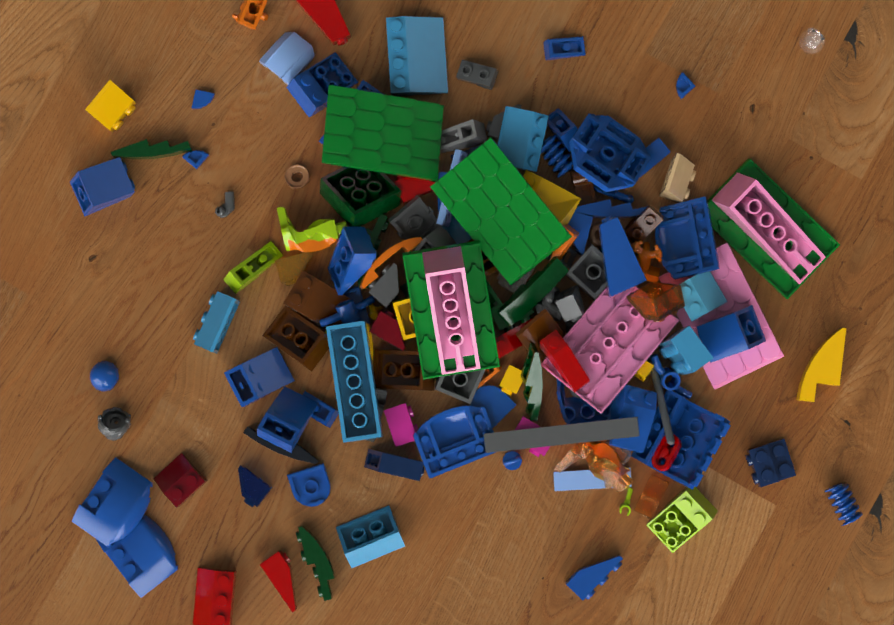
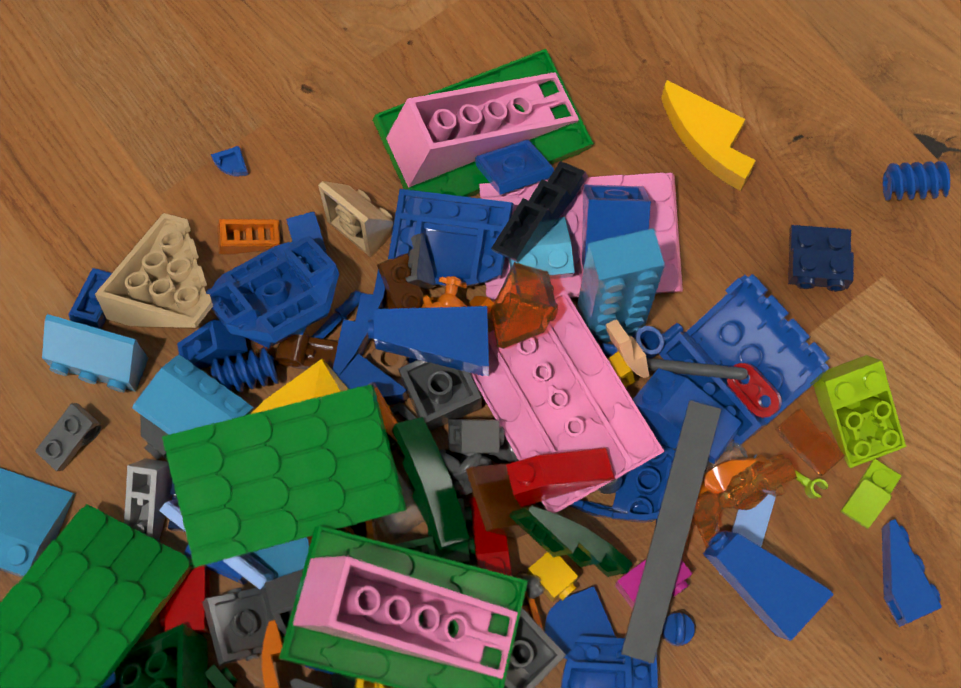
camera: 70 degrees left, 15 degrees down
(500, 371) = (533, 586): none -> dark grey arm
(528, 66) = (92, 354): none -> dark azure slope
(554, 504) = (770, 586): none -> blue slope
(589, 82) = (158, 280): none -> tan slope
(635, 541) = (871, 493): none -> lime slope
(643, 108) = (247, 225): none -> orange slope
(655, 371) = (628, 348): none -> light nougat slope
(662, 229) = (419, 262): none -> dark grey tile
(721, 287) = (539, 213): none -> black slope
(747, 258) = (514, 166): none -> blue tile

